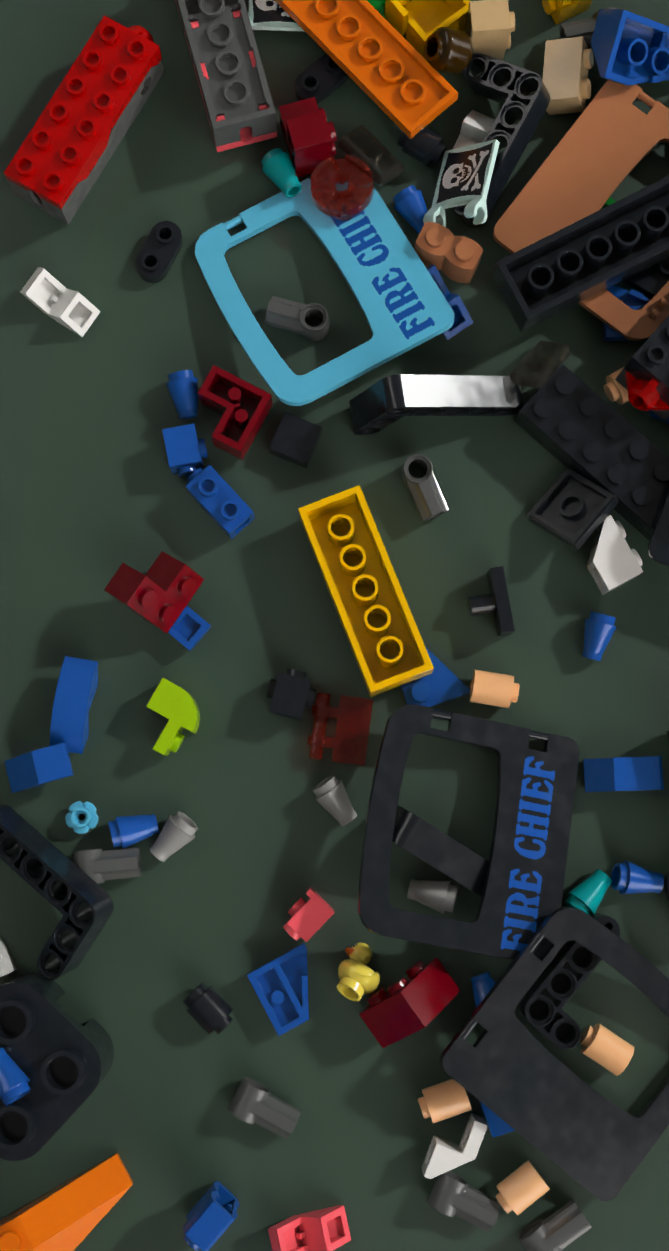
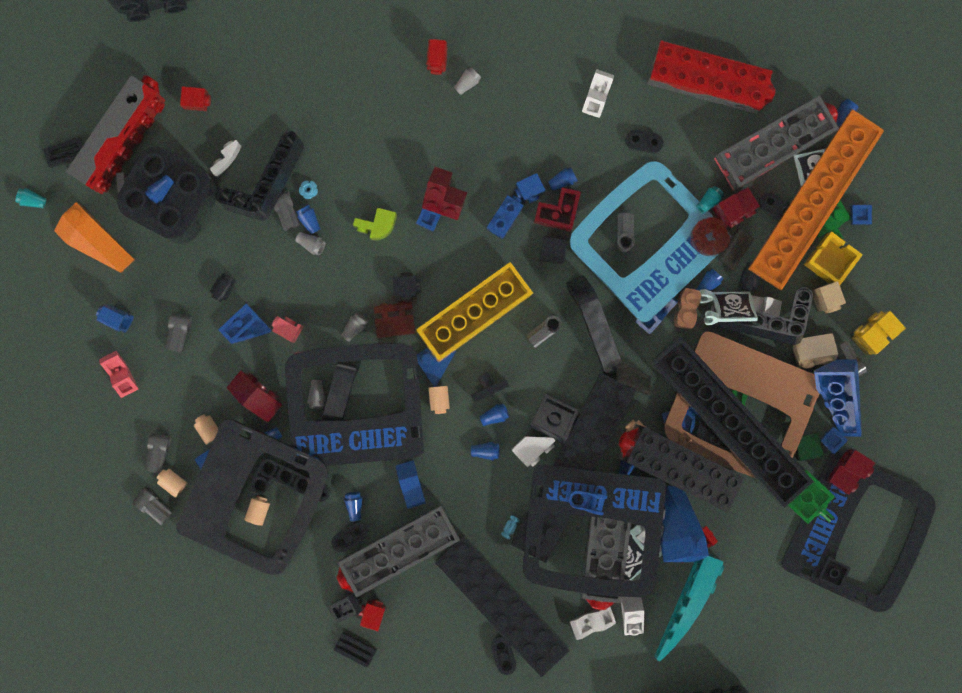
camera: 75 degrees right, 5 degrees up
(38, 767) = (328, 158): blue slope -> none
(72, 703) = (368, 166): blue brick -> none
(355, 975) = (260, 363): light yellow animal -> none
(445, 1155) = (179, 436): white slope -> none
(448, 50) = (807, 277): dark brown head -> none
(542, 605) = (495, 415): none -> blue cone
(589, 892) = (339, 481): teal cone -> none

